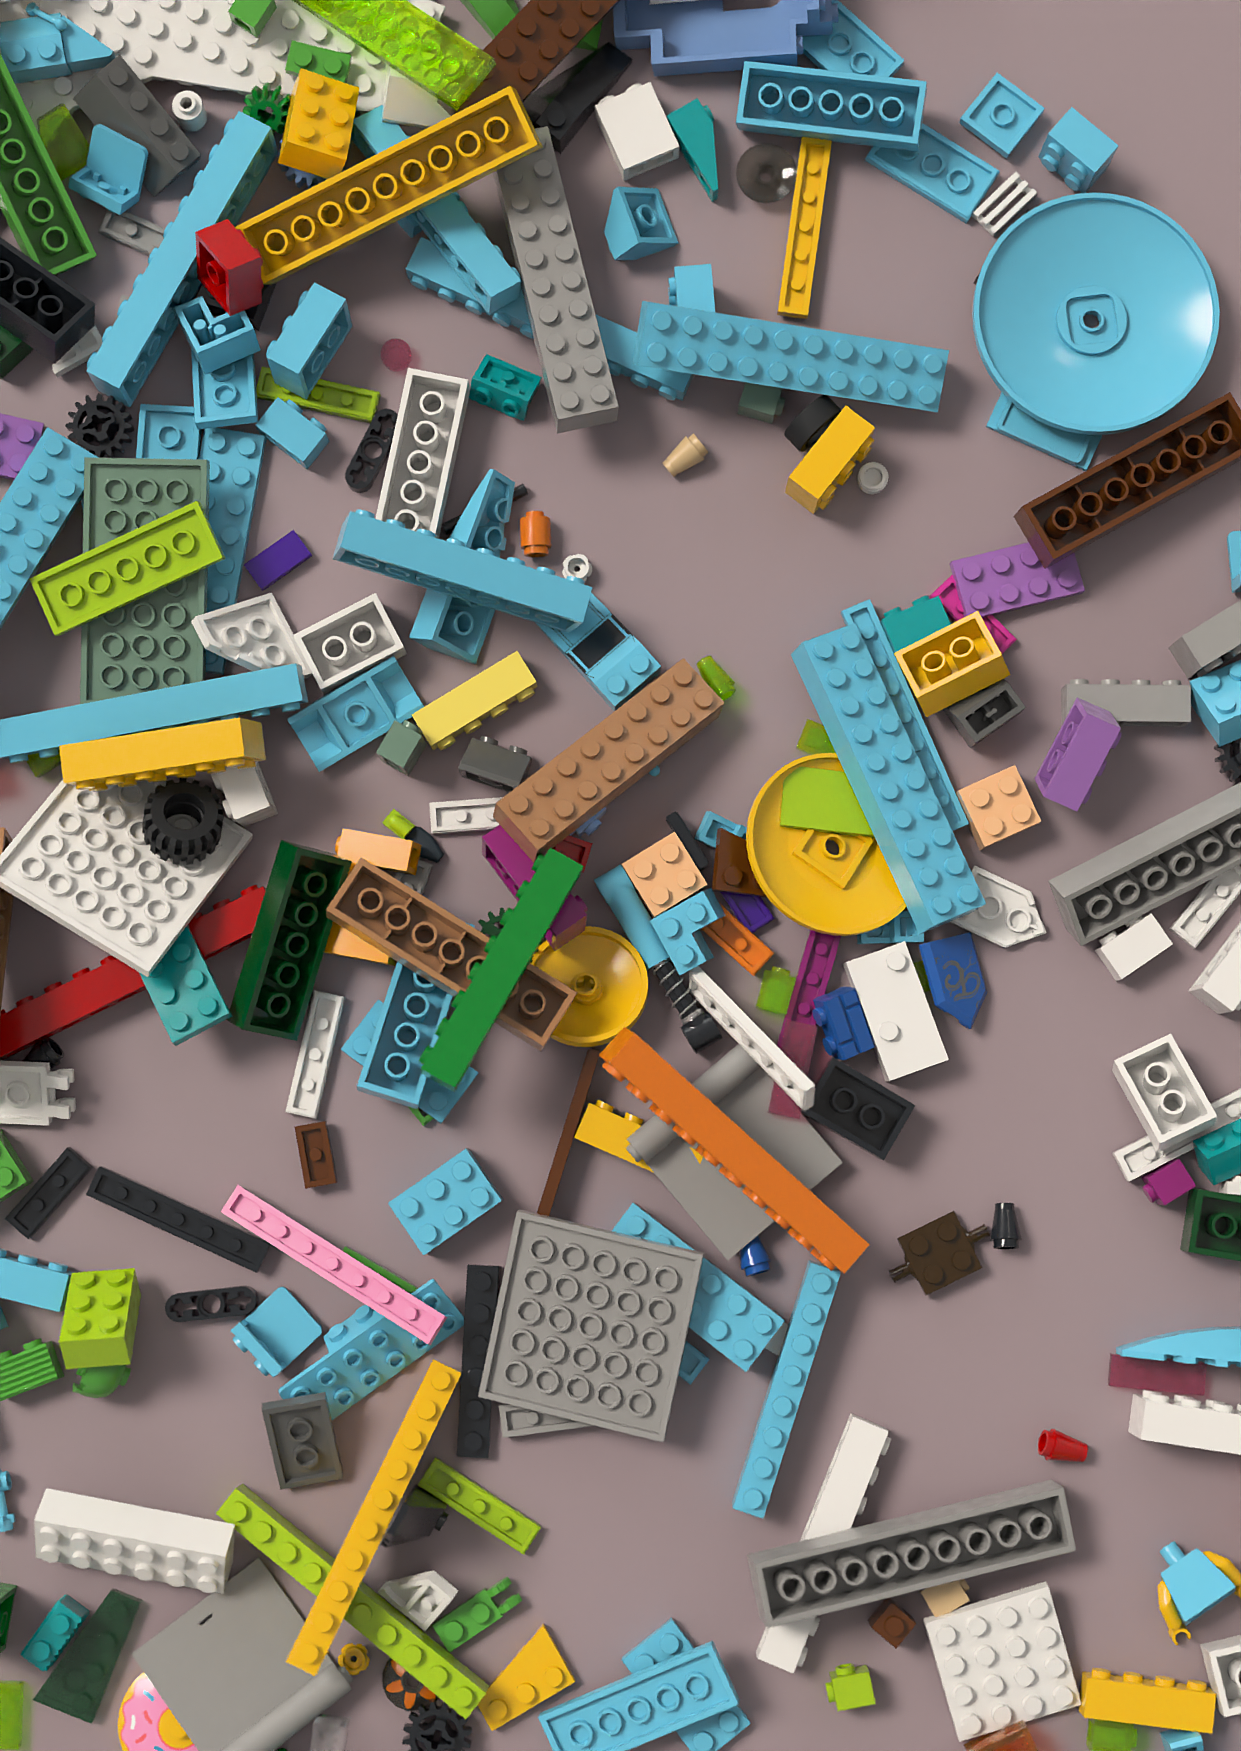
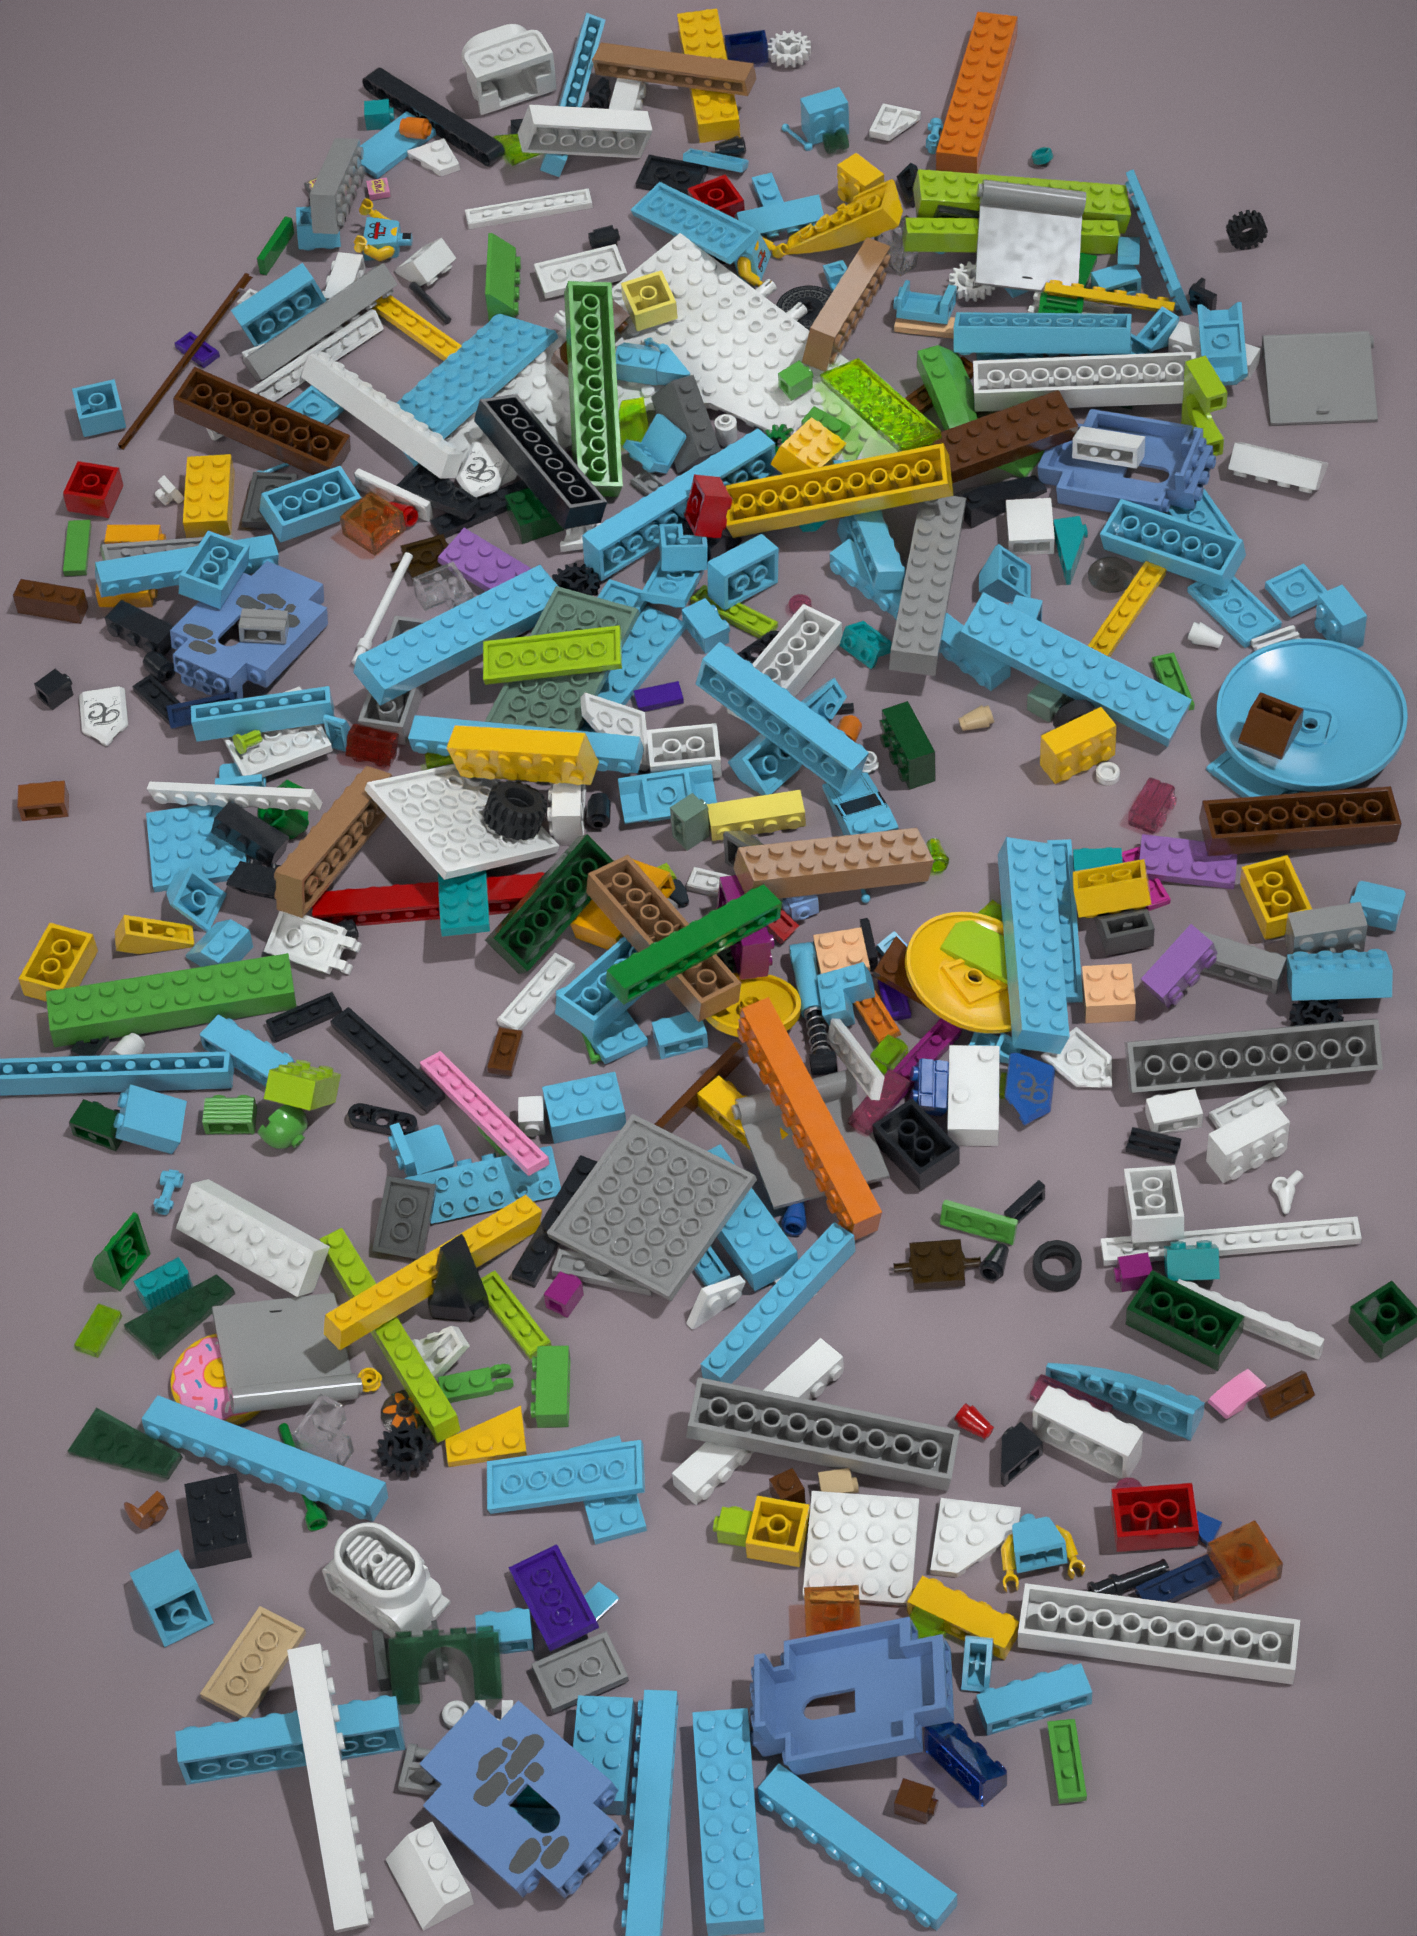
camera: 25 degrees right, 30 degrees down
(279, 765) = (598, 810): none -> black brick
(388, 1236) = (531, 1115): none -> white brick
(509, 1058) = (679, 1035): none -> medium azure brick
(530, 1461) = (564, 1294): none -> magenta brick
(568, 1589) = (551, 1386): none -> bright green brick
(622, 535) = (908, 745): none -> dark green brick
(708, 1412) = (714, 1300): none -> white wing
(899, 309) = (1170, 674): none -> bright green tile
(905, 1681) = (778, 1531): none -> yellow brick
(914, 227) = (1203, 635): none -> white cone
(947, 511) = (1152, 805): none -> clear pink brick
(967, 1183) = (978, 1222): none -> bright green tile
(1010, 1138) = (1027, 1202): none -> black tile
(1064, 363) = (1271, 726): none -> reddish brown slope
(1098, 1194) = (1057, 1248): none -> black tyre
(1110, 1588) = (969, 1534): none -> white plate
(1125, 1470) = (1018, 1451): none -> black slope
(1145, 598) = (1272, 893): none -> yellow brick
(1149, 993) = (1154, 1142): none -> black tile

